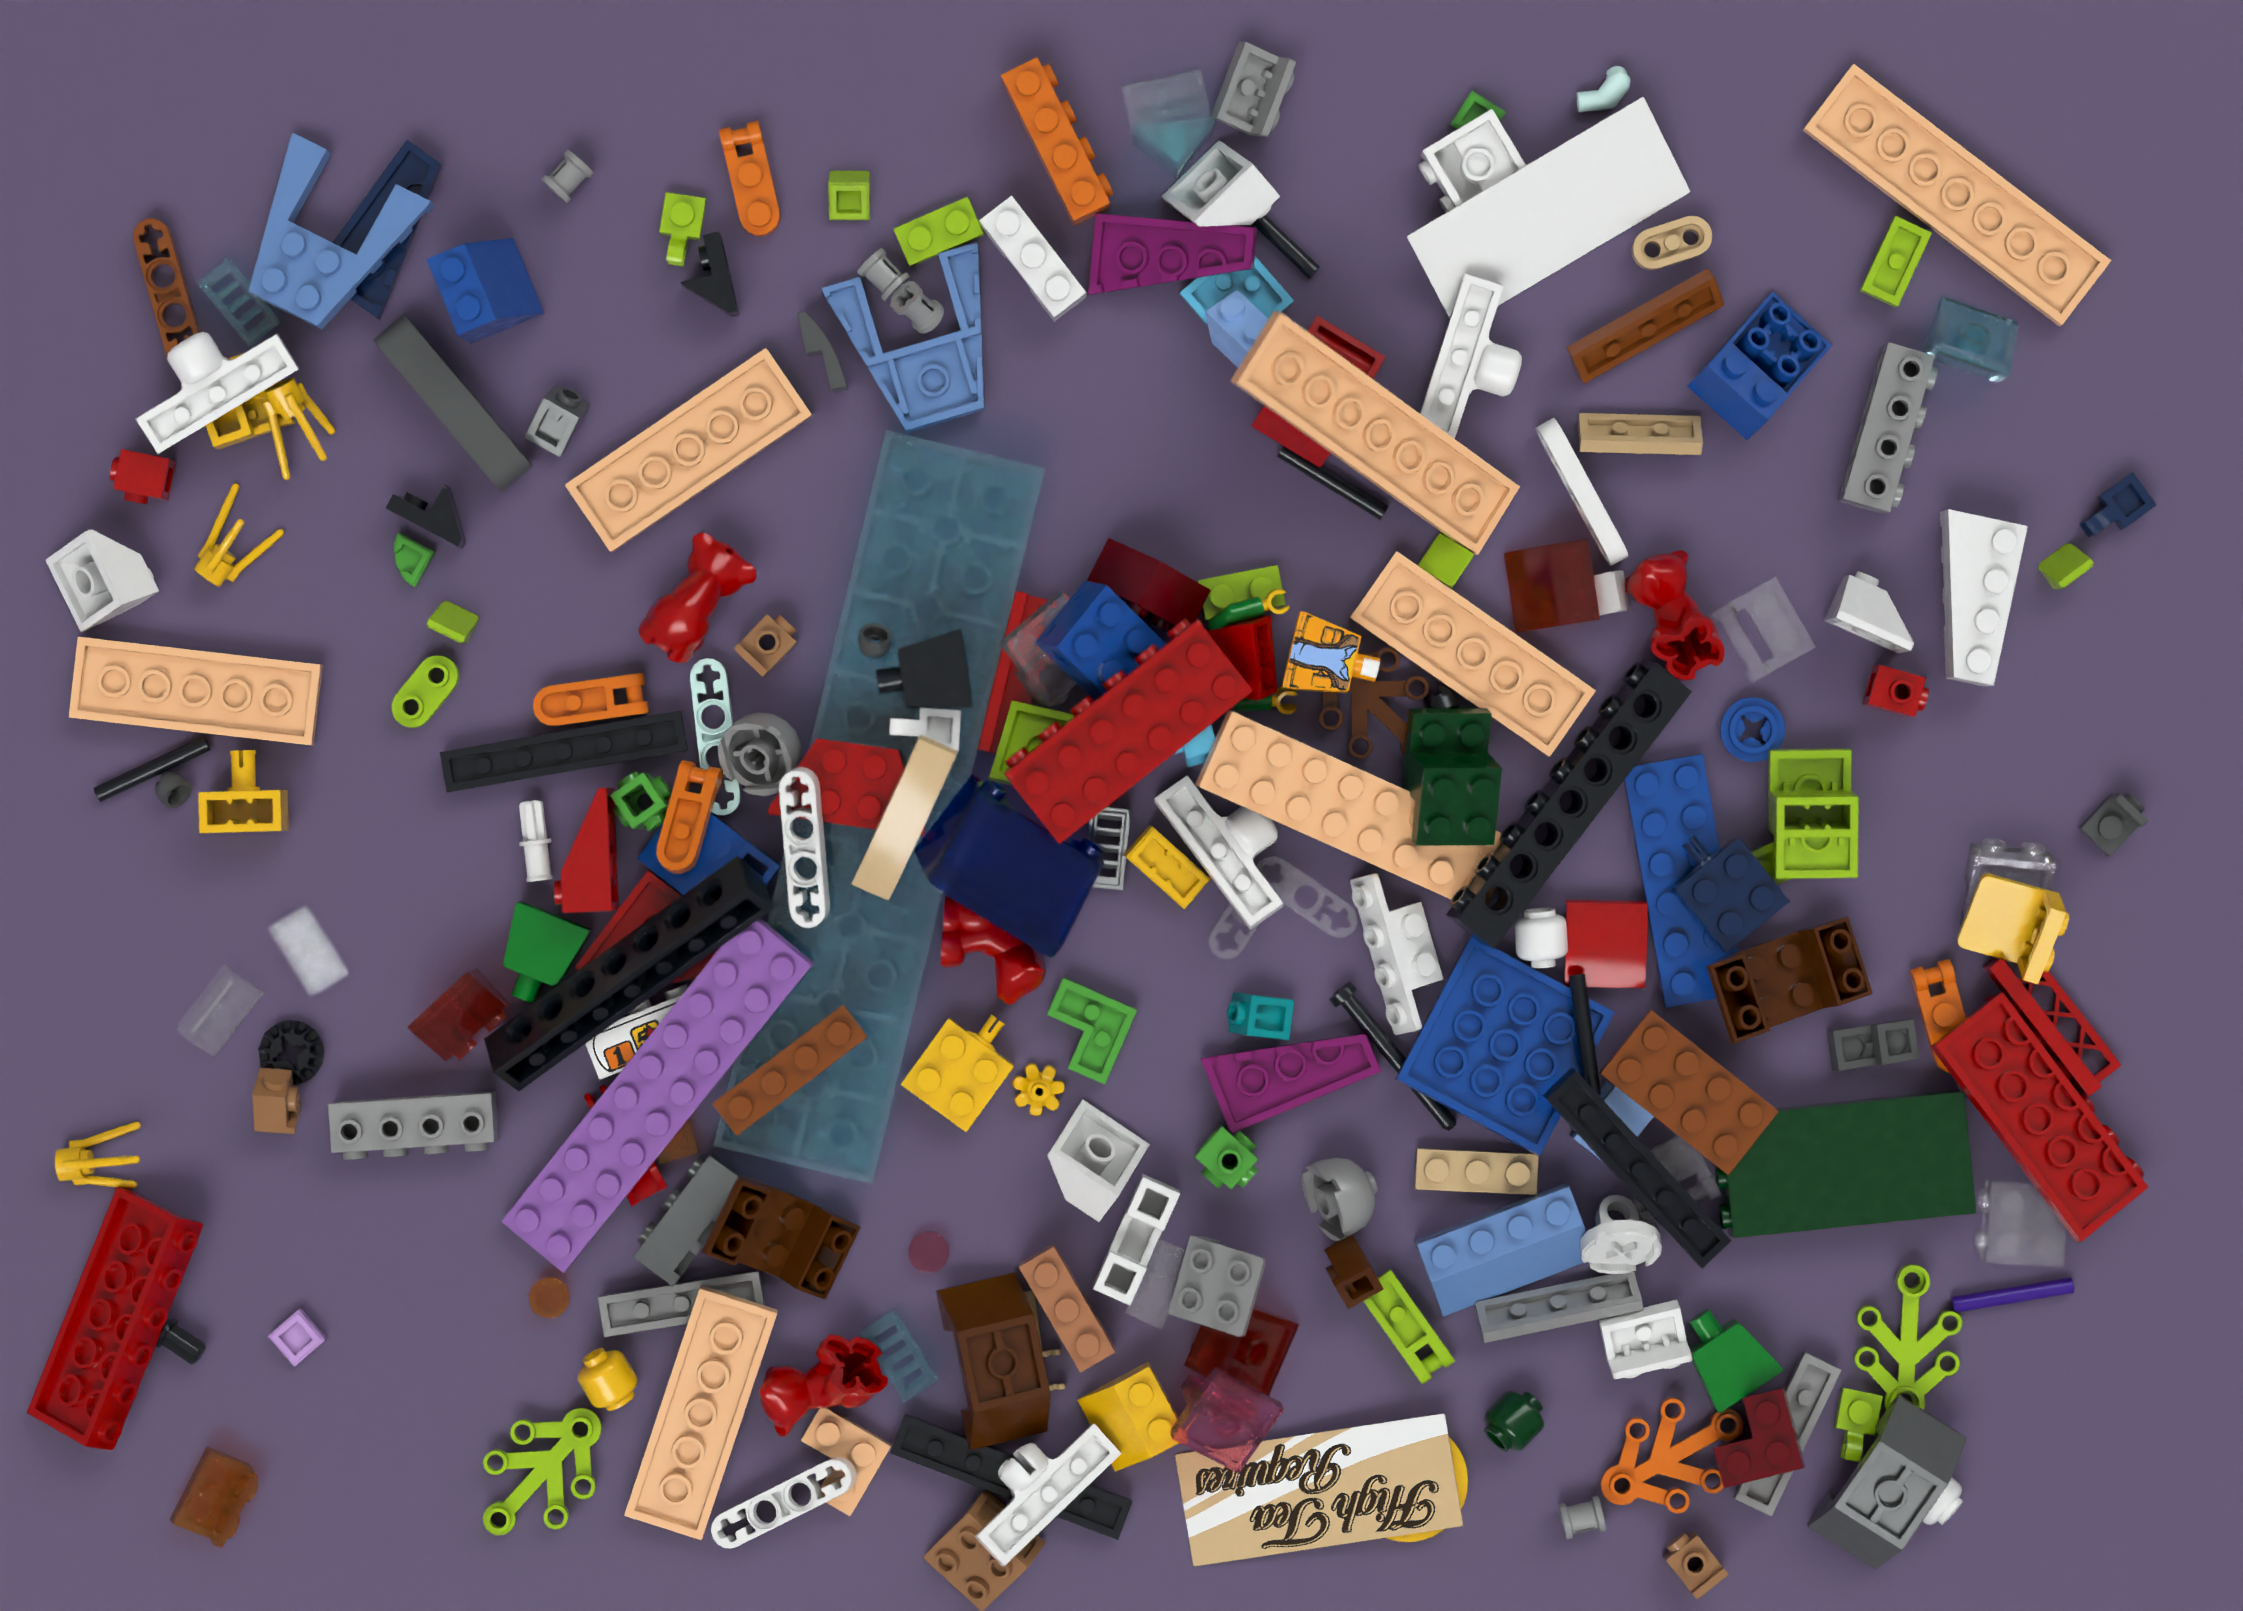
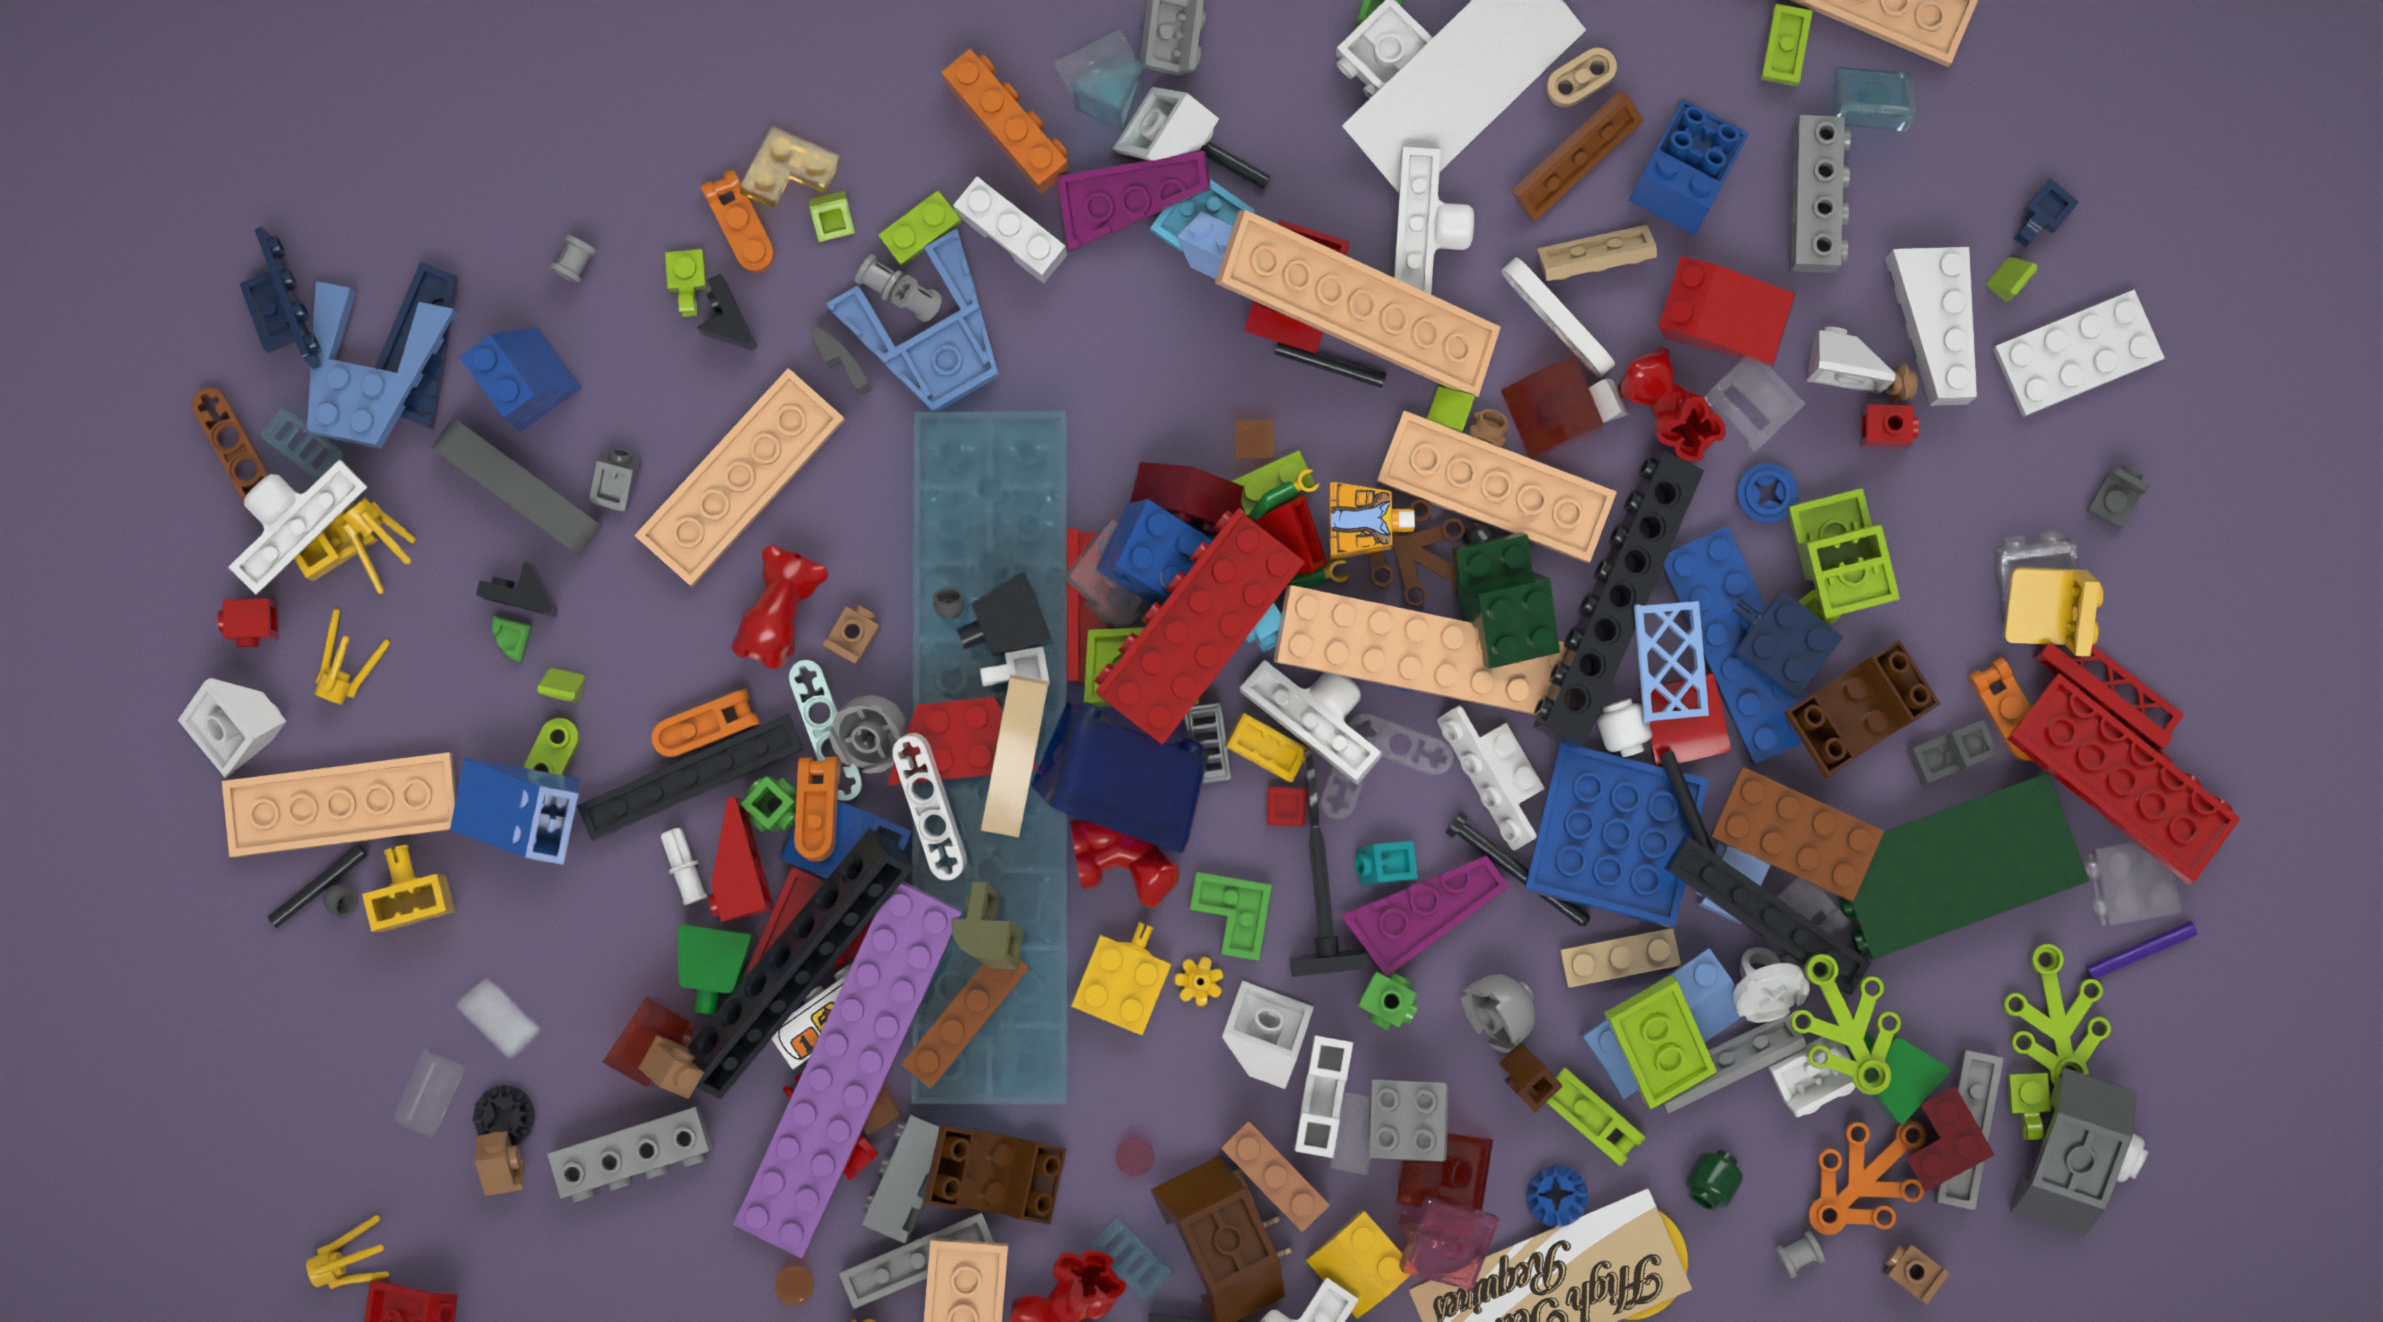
camera: 10 degrees left, 5 degrees down
(243, 150) = (273, 305): none -> dark blue bracket
(377, 742) = (516, 809): none -> blue slope
(476, 1048) = (671, 1067): none -> medium nougat brick
(815, 122) = (784, 158): none -> clear yellow plate
(826, 994) = (983, 936): none -> olive brick
(1172, 932) = (1286, 806): none -> red tile
(1177, 1097) = (1327, 956): none -> black piece
(1234, 542) = (1254, 439): none -> clear orange plate
(1361, 1412) = (1570, 1207): none -> blue gear
(1481, 589) = (1490, 426): none -> medium nougat plate
(1494, 1270) = (1660, 1042): none -> lime plate
(1627, 905) = (1692, 639): none -> light blue window
(1690, 1305) = (1849, 1029): none -> lime plant
(1757, 530) = (1725, 311): none -> red slope
(1923, 651) = (1904, 386): none -> medium nougat plate
(2114, 662) = (2078, 353): none -> white plate

